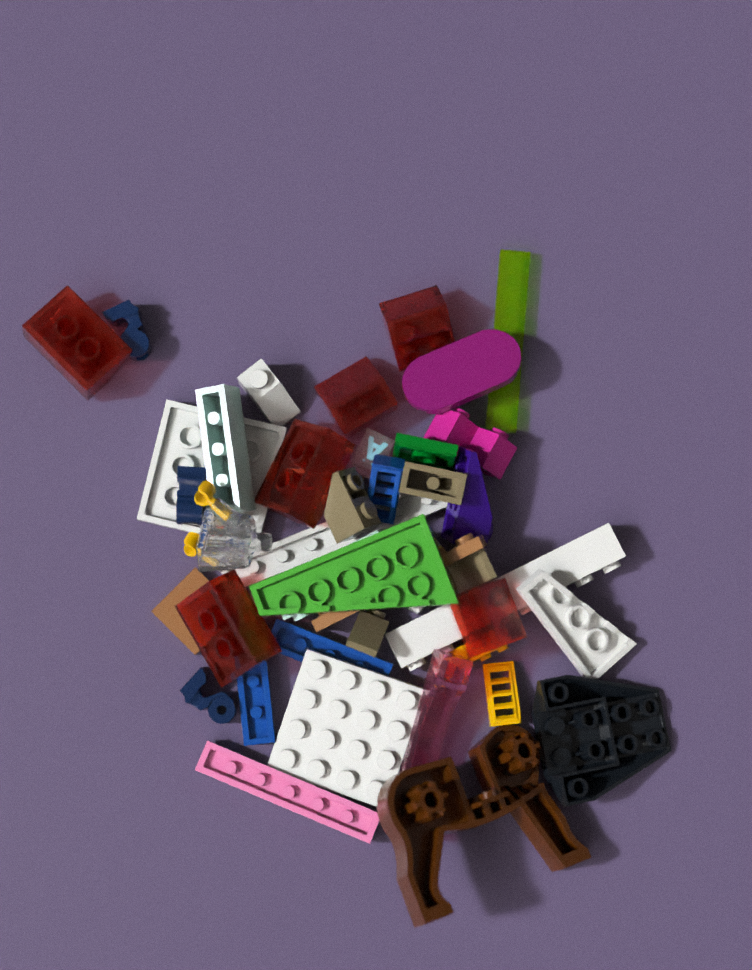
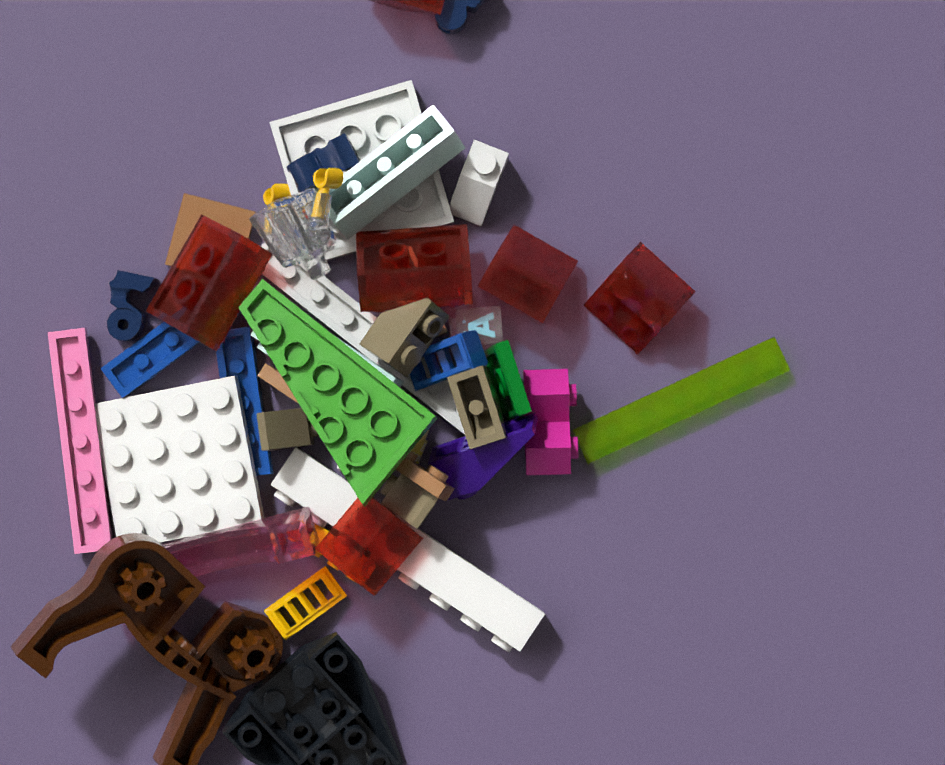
camera: 65 degrees right, 5 degrees up
(462, 371) = (617, 370): magenta tile -> none
(578, 630) = (415, 644): white wing -> none

